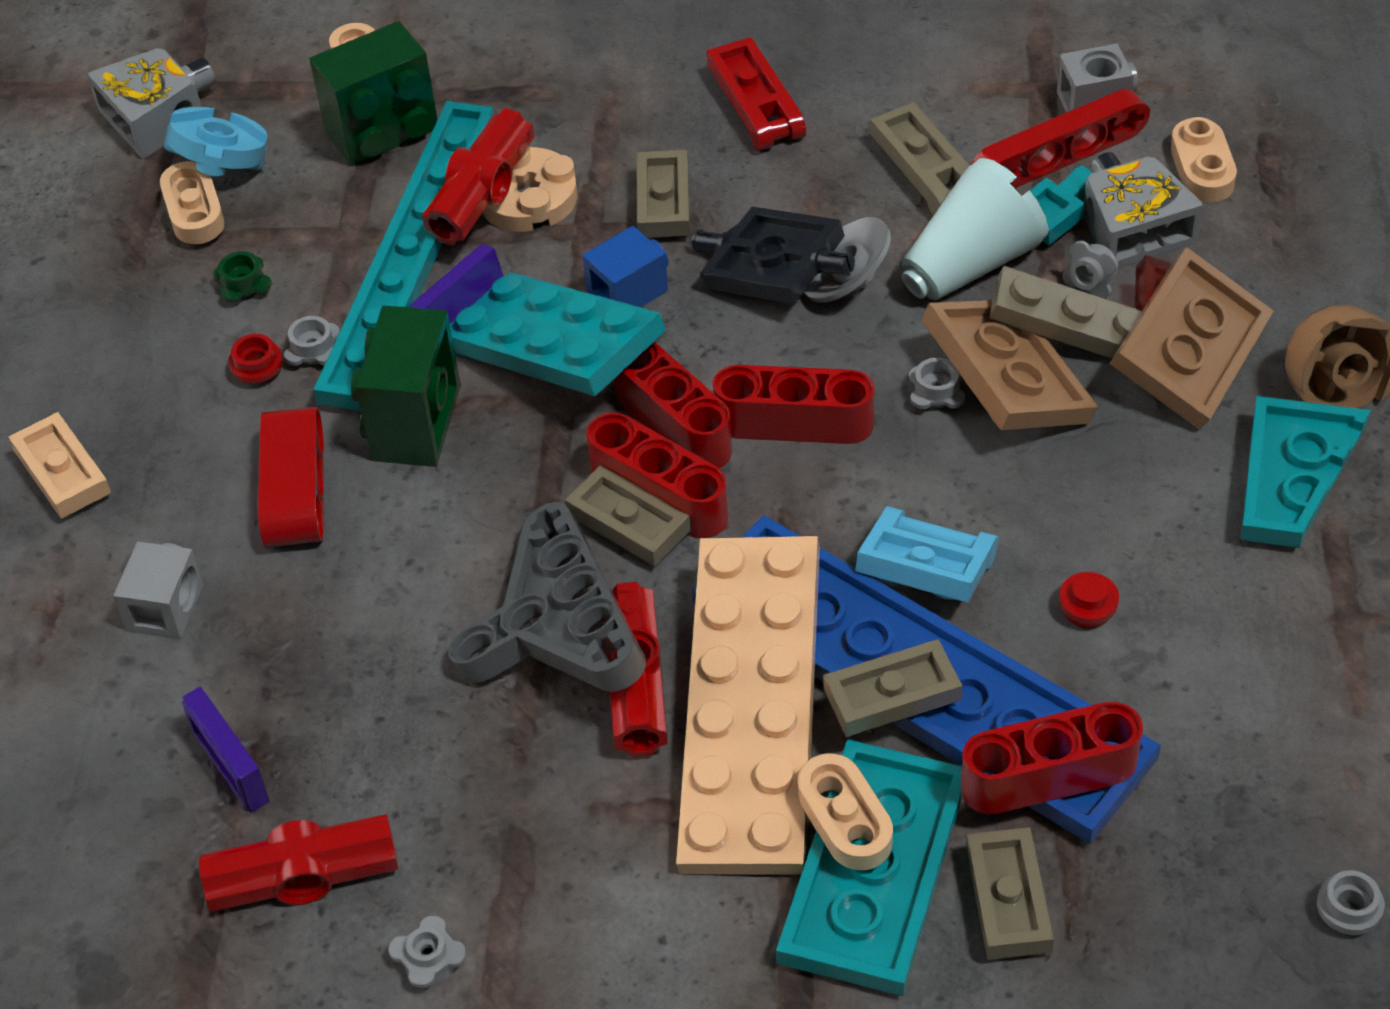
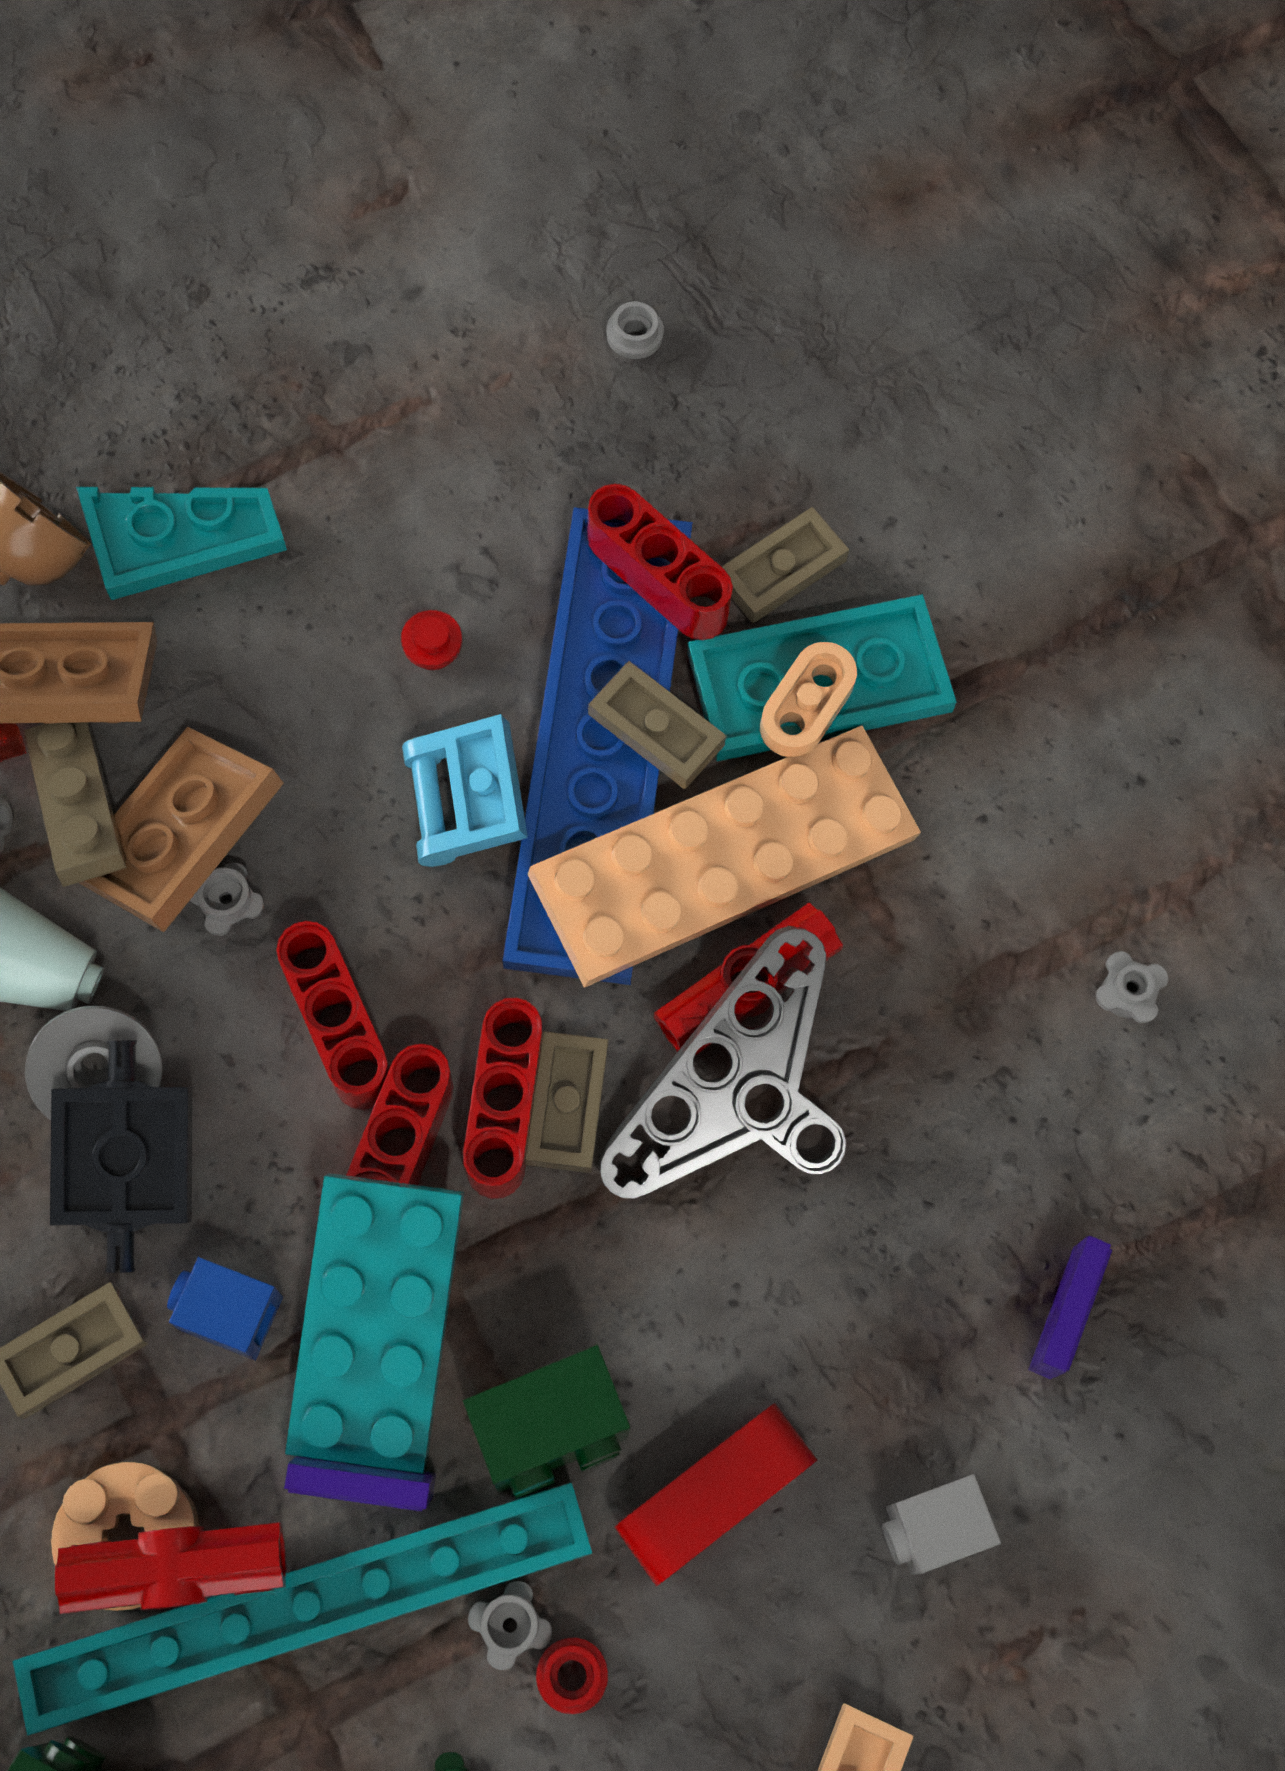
camera: 130 degrees left, 20 degrees up
(298, 862) = (1132, 1154): red piece -> none

